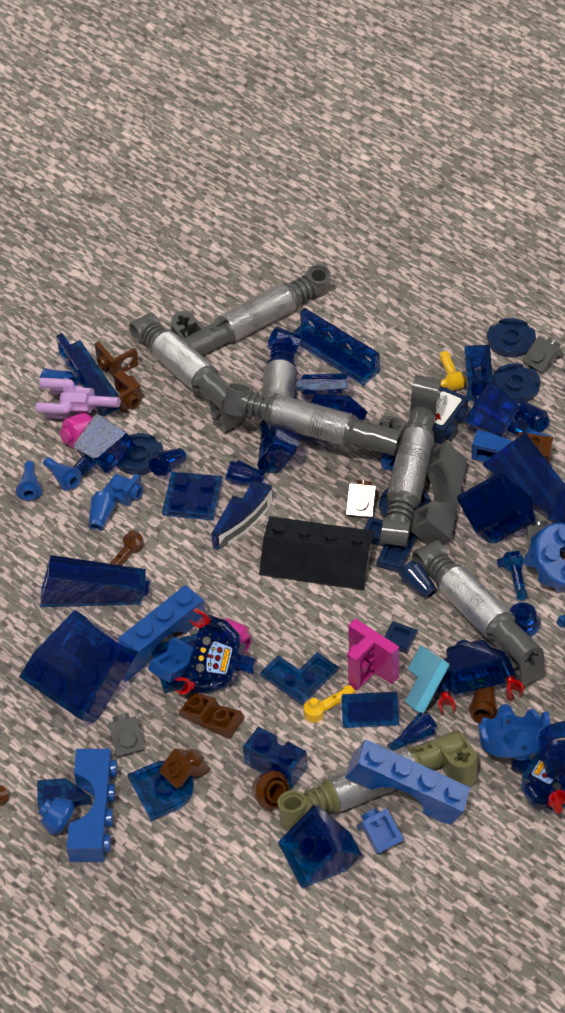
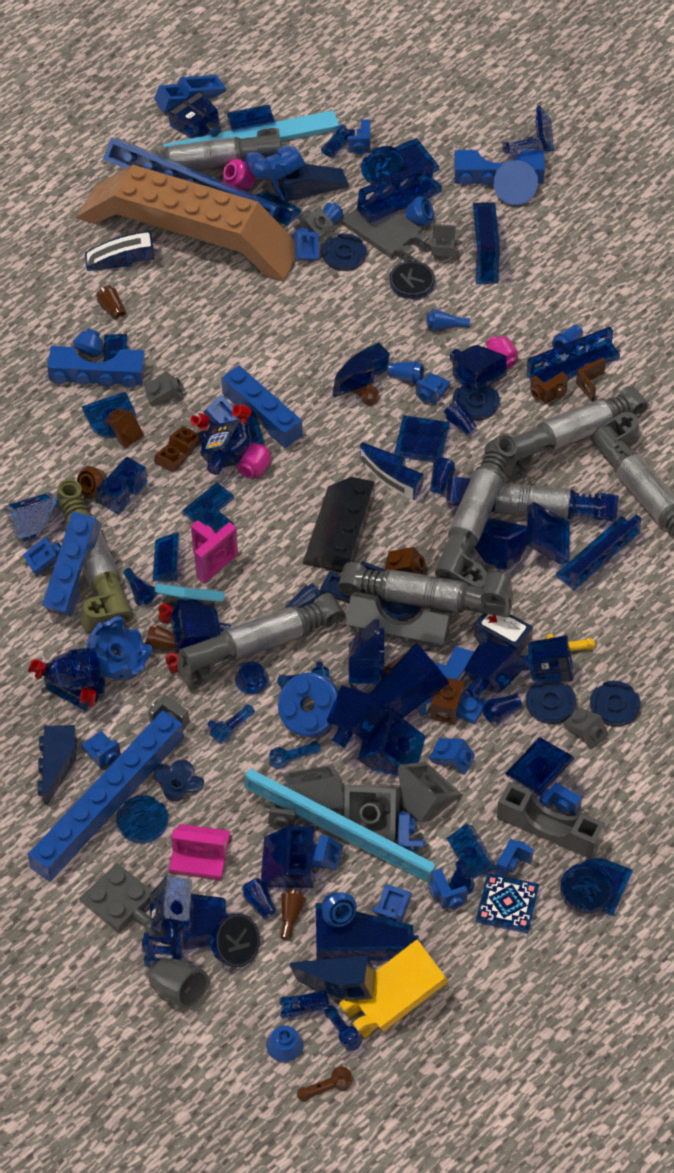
camera: 90 degrees right, 5 degrees up
(66, 476) = (446, 345): blue cone -> none
(72, 399) = (529, 339): lavender plant -> none
(79, 666) = (221, 348): clear blue slope -> none
(91, 583) = (317, 361): clear blue slope -> none
(105, 543) = (361, 369): none -> clear blue slope
(315, 709) = (173, 520): yellow piece -> none
(401, 636) = (244, 585): dark blue tile -> none

